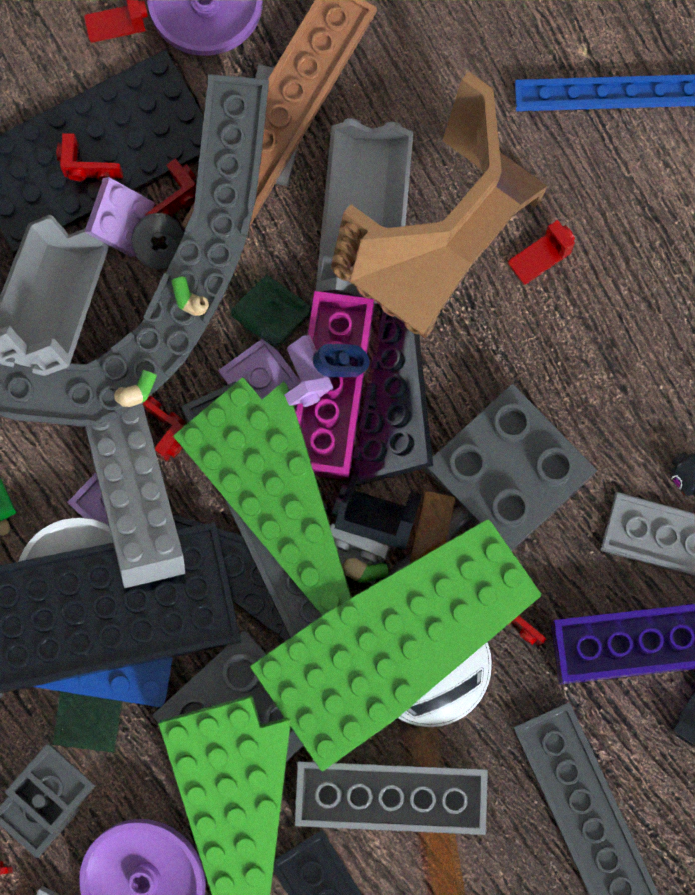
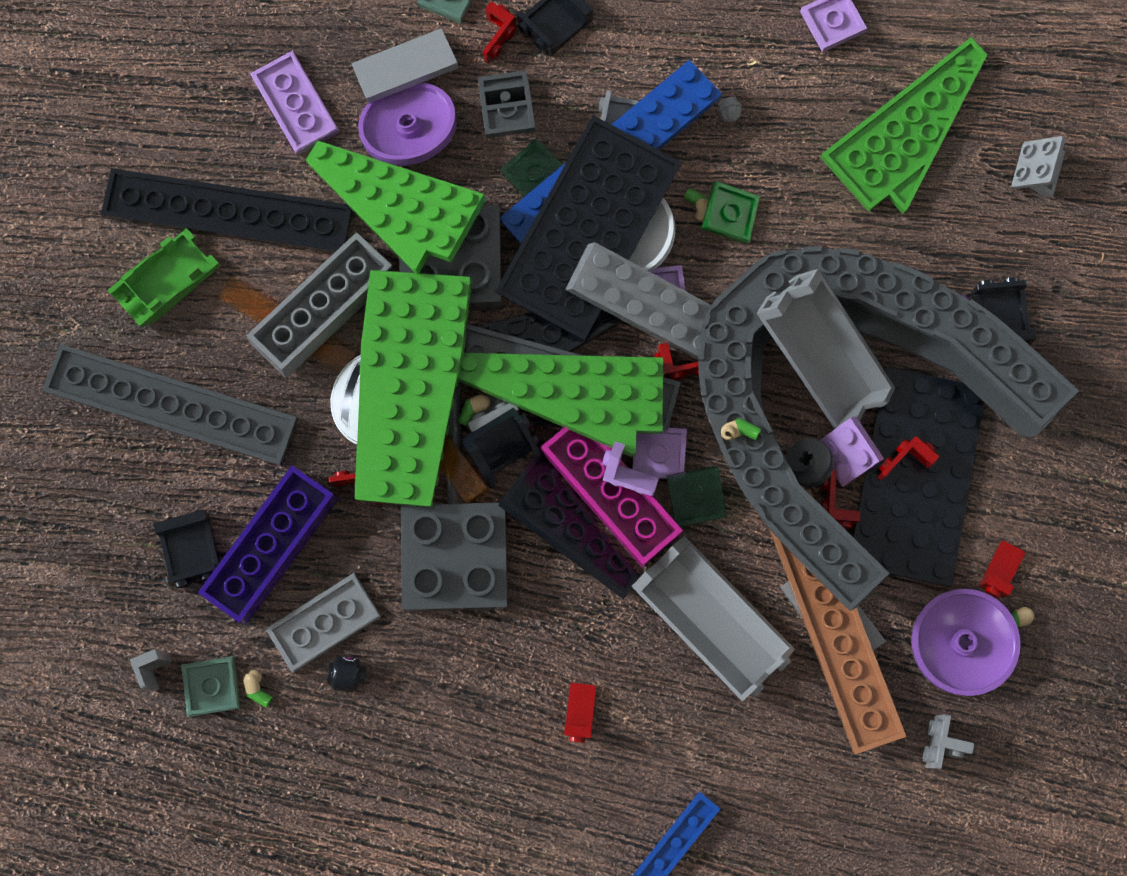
camera: 135 degrees right, 0 degrees up
(137, 393) = (703, 348): arm -> none
(340, 360) = (616, 498): dark blue plate -> none
(421, 265) = (621, 599): medium nougat panel -> none

